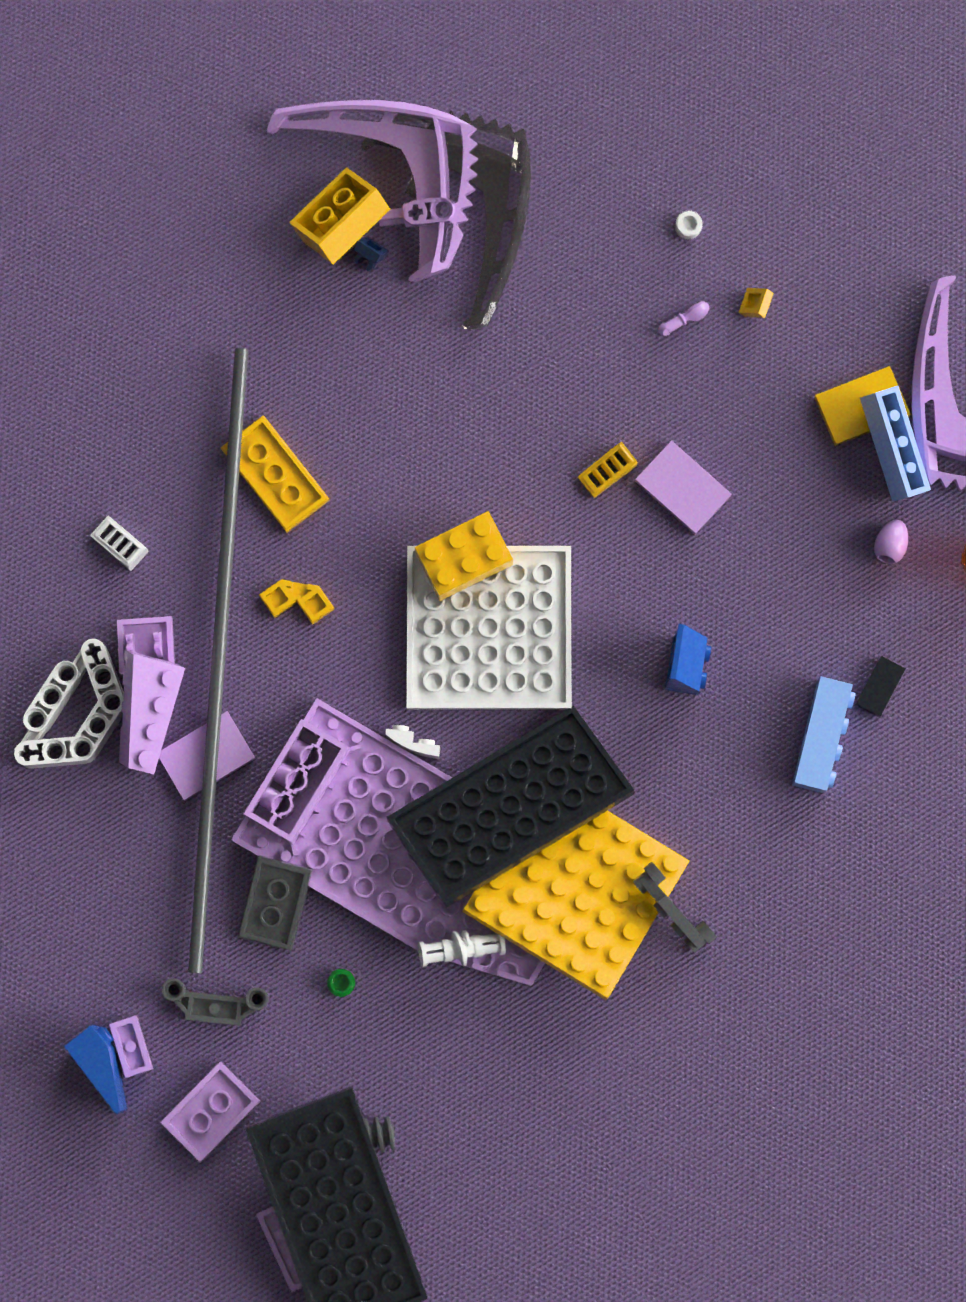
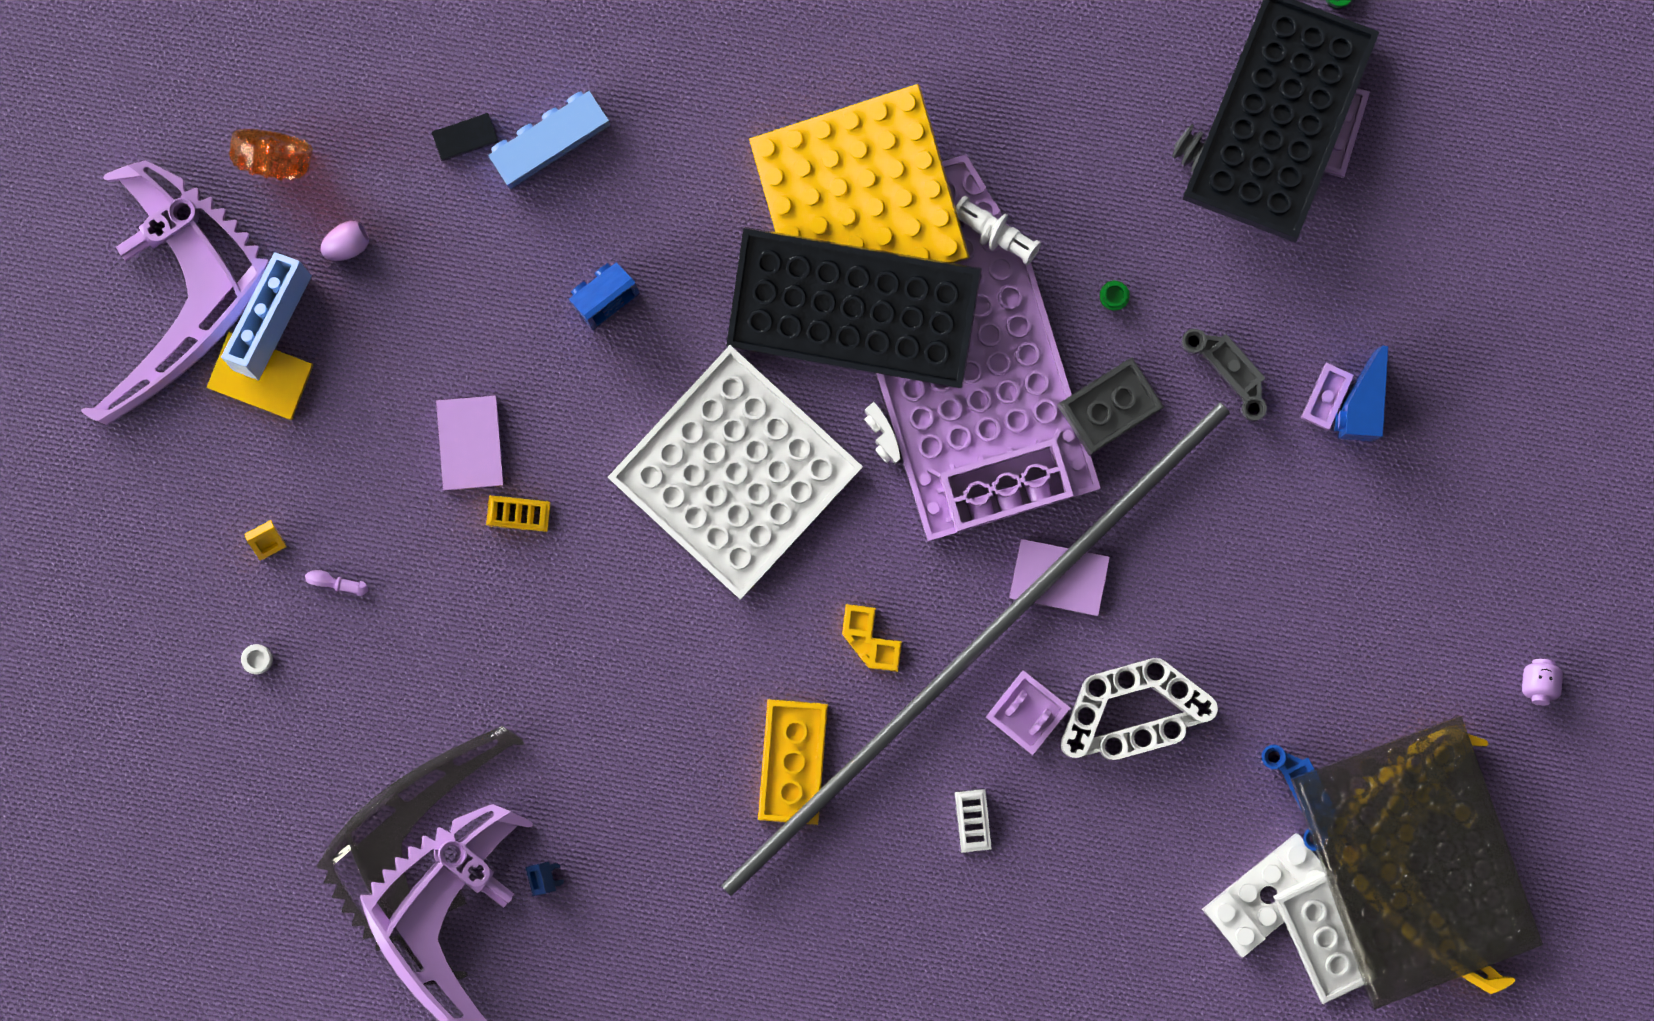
camera: 140 degrees left, 5 degrees up
(147, 707) = (1074, 653): lavender wedge -> none
(210, 1111) = (1309, 288): lavender plate -> none
(339, 215) = (541, 929): yellow brick -> none
(464, 555) = (703, 544): yellow brick -> none
(696, 936) = (801, 75): dark grey plate -> none

